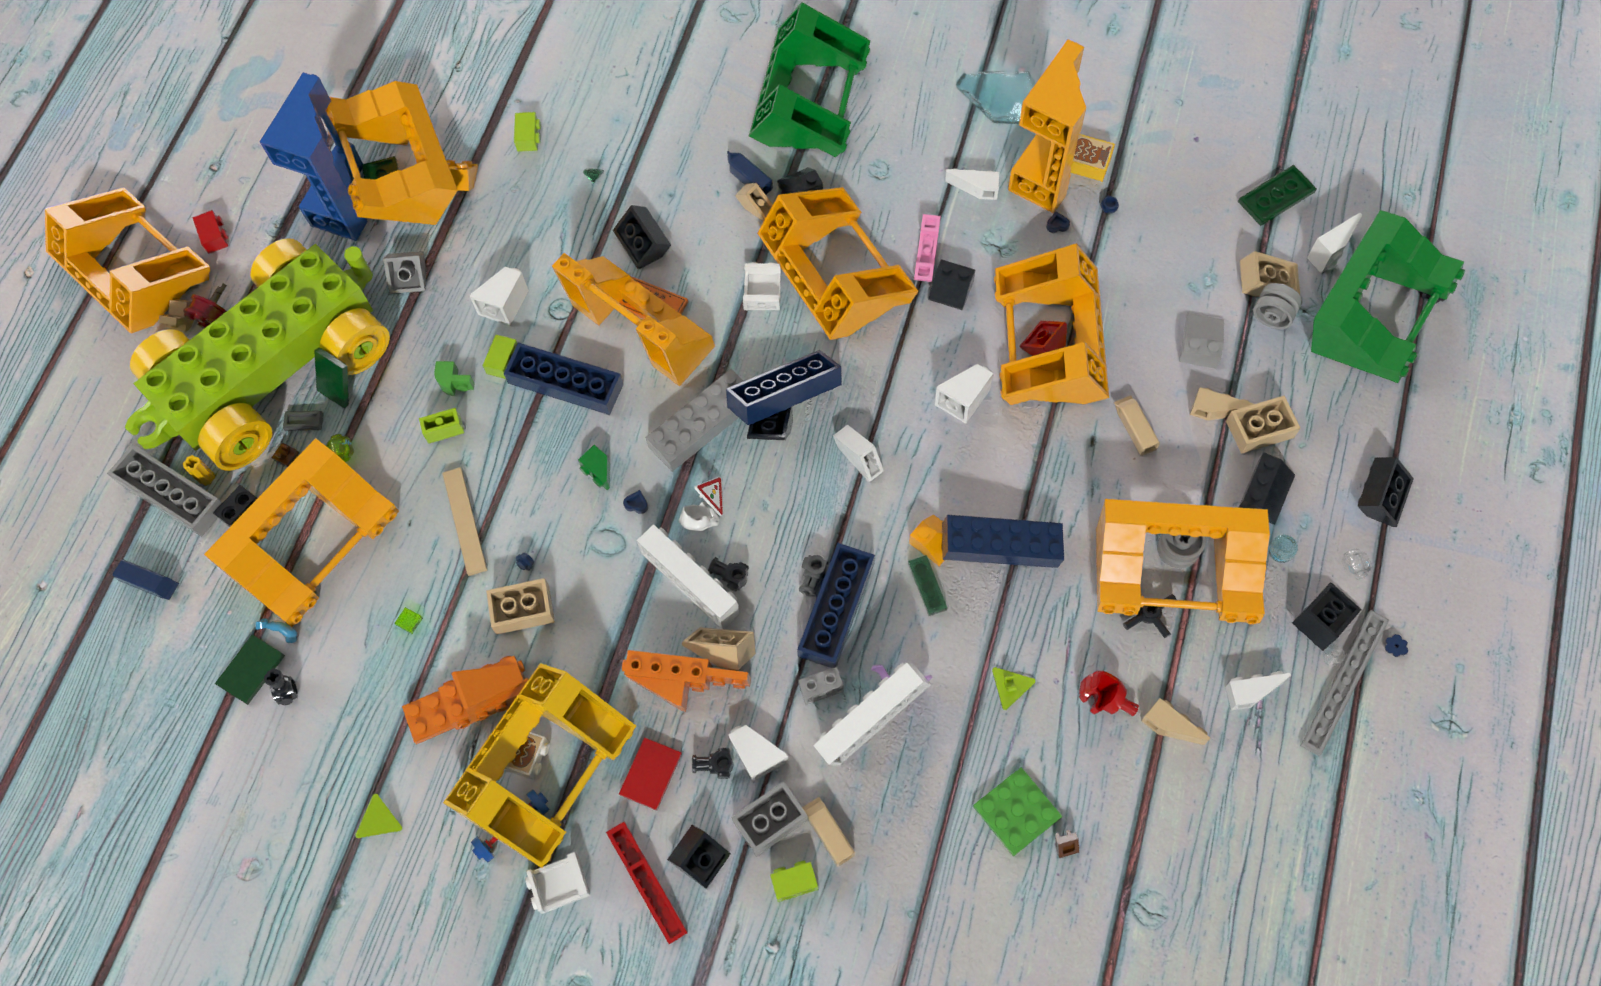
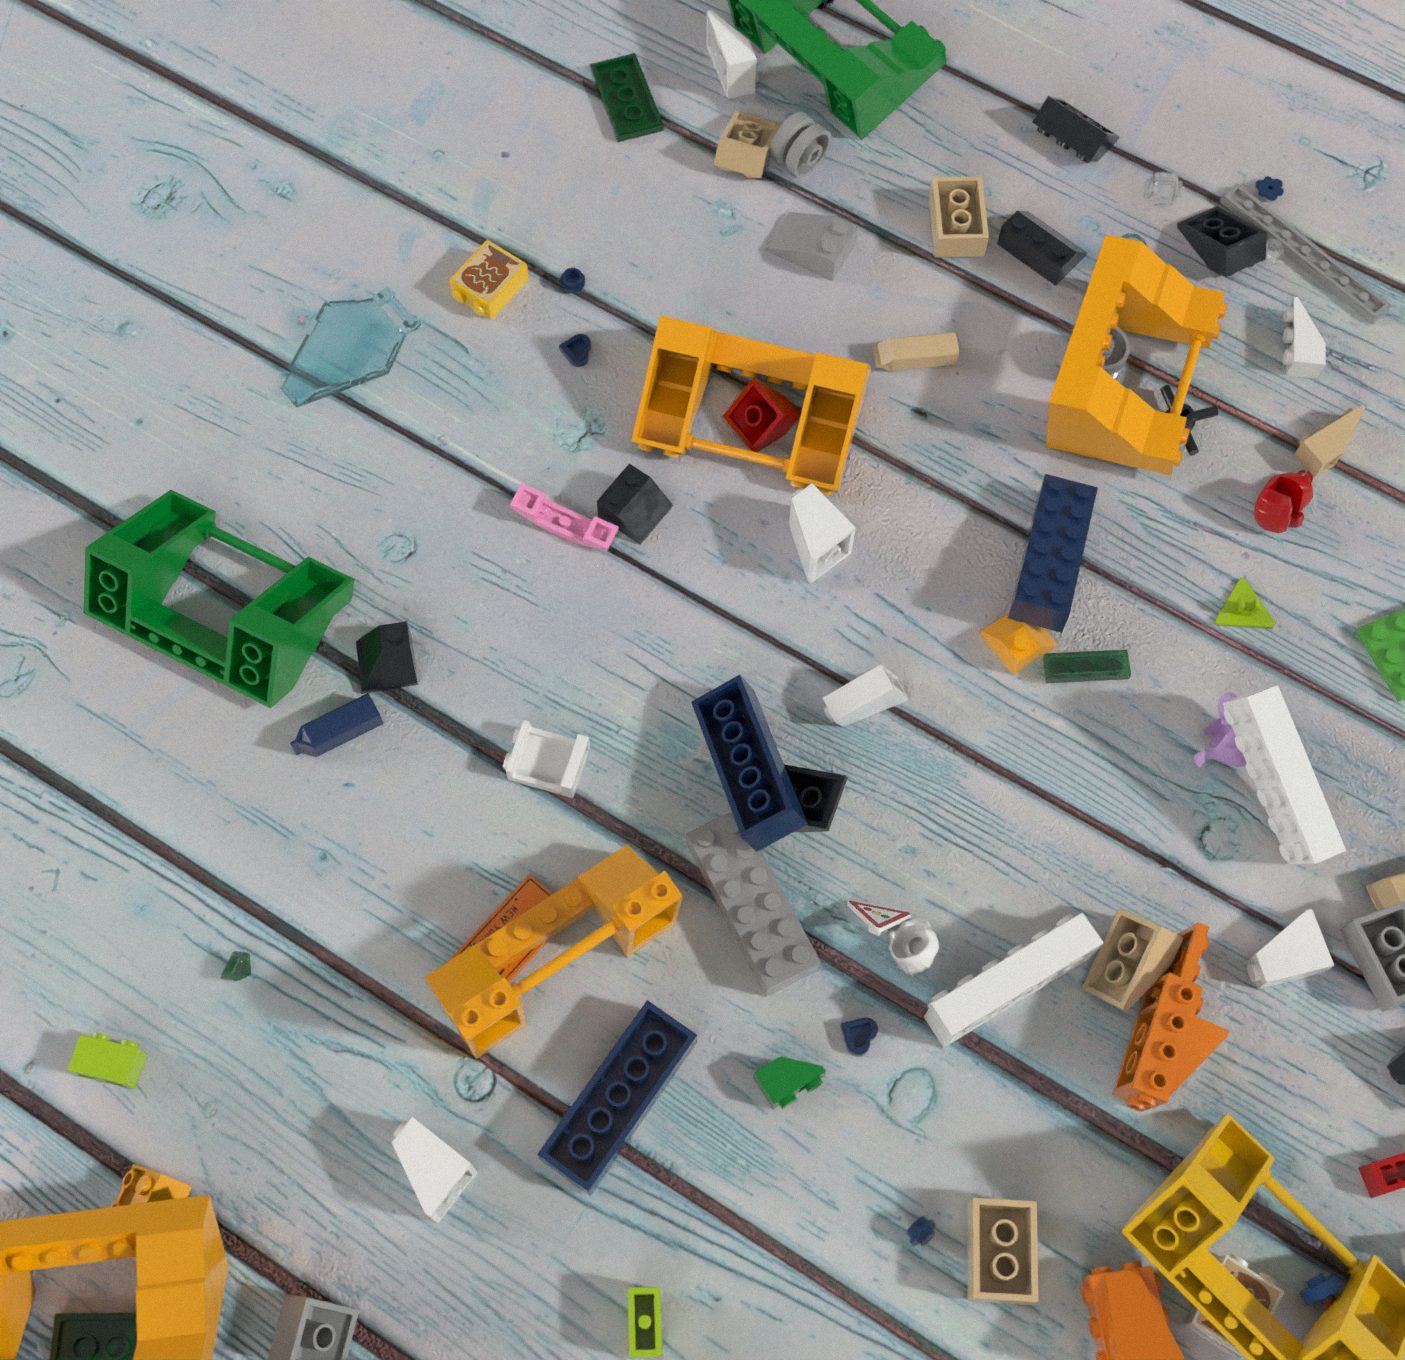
camera: 80 degrees left, 0 degrees up
(448, 379) = (554, 1300): bright green brick -> none
(464, 521) = (822, 1320): tan tile -> none
(499, 355) = (540, 1194): lime brick -> none
(641, 236) = (392, 917): black slope -> none
(650, 774) = (1295, 1112): red tile -> none
(711, 763) = (1298, 1018): black connector -> none
(728, 571) = (1011, 923): black connector -> none
(754, 200) = (392, 729): tan slope -> none
(813, 575) = (1042, 807): dark grey connector -> none
(821, 686) = (1210, 840): light grey brick -> none
(836, 606) = (1098, 788): dark blue brick -> none
(850, 298) = (629, 629): light orange brick -> none
(977, 183) = (480, 423): white slope -> none
(1056, 116) = (485, 248): light orange brick -> none
(1213, 405) = (911, 263): tan slope -> none

